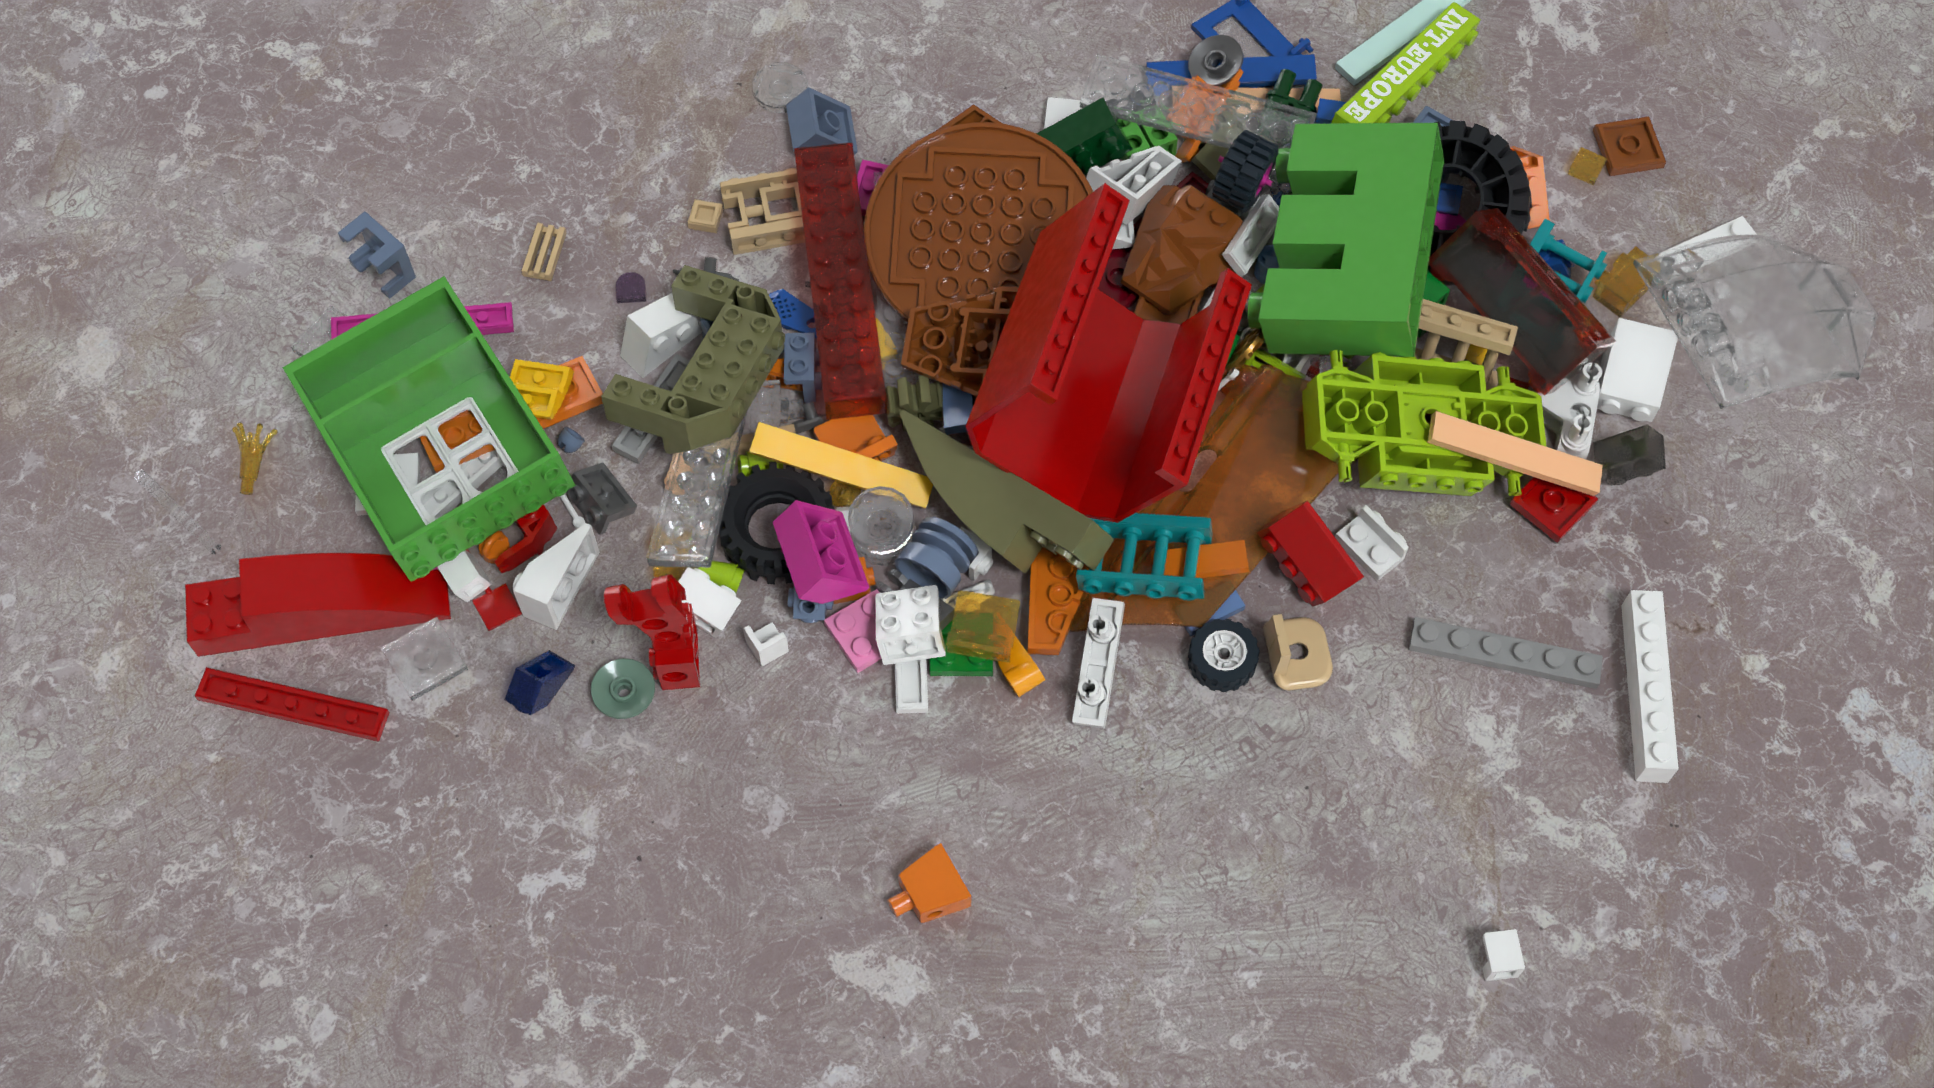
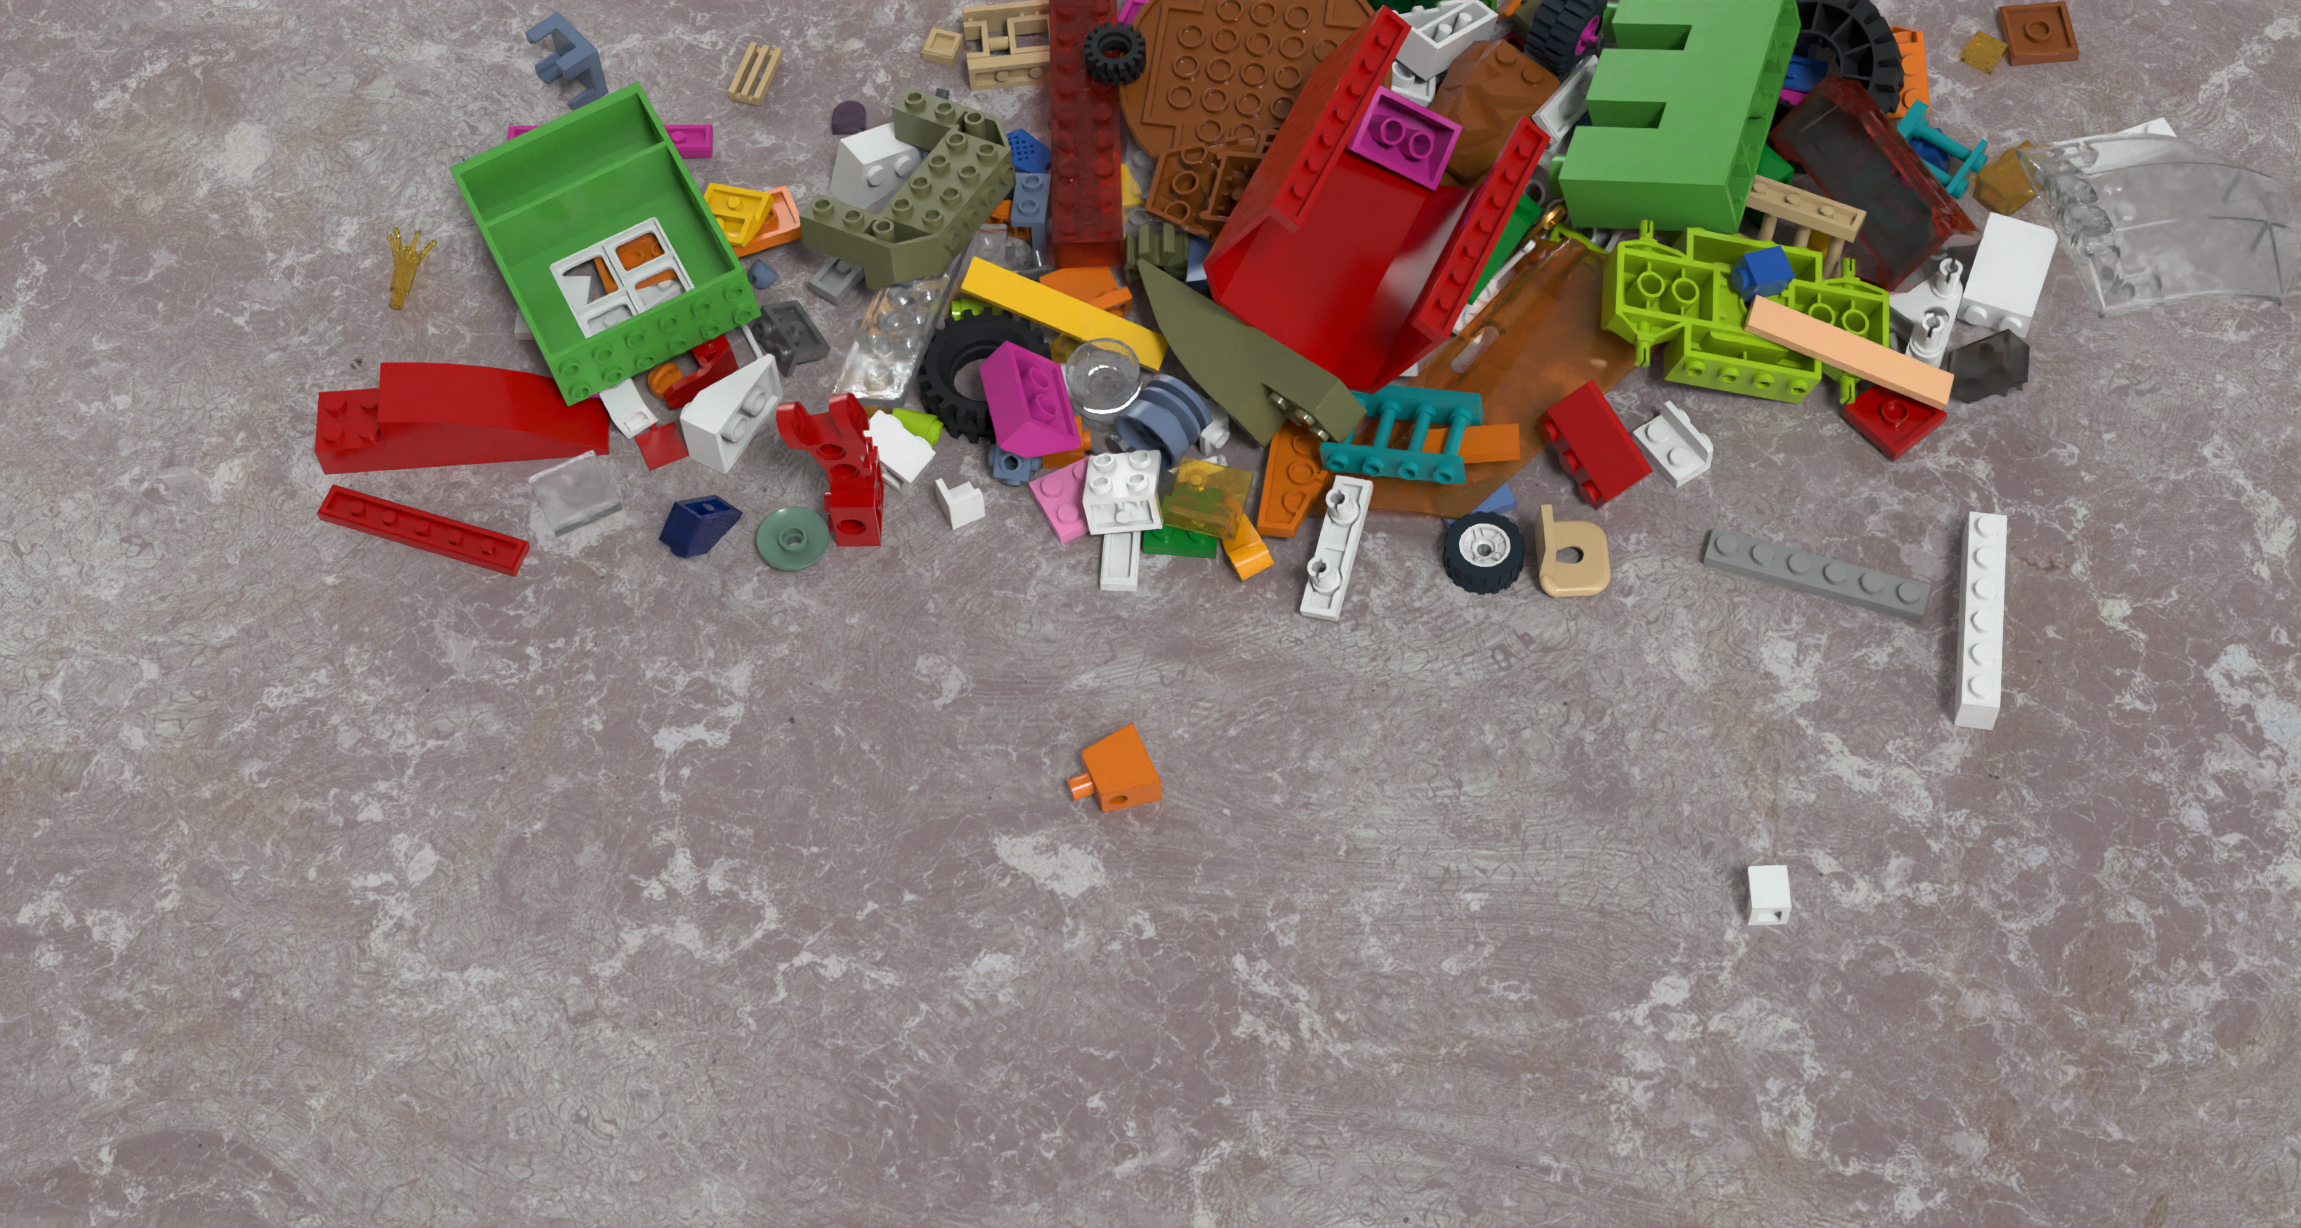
camera: 10 degrees right, 5 degrees down
(861, 209) = (1115, 39): none -> black tyre
(1129, 288) = (1405, 138): none -> dark pink slope
(1439, 392) = (1762, 273): none -> blue brick

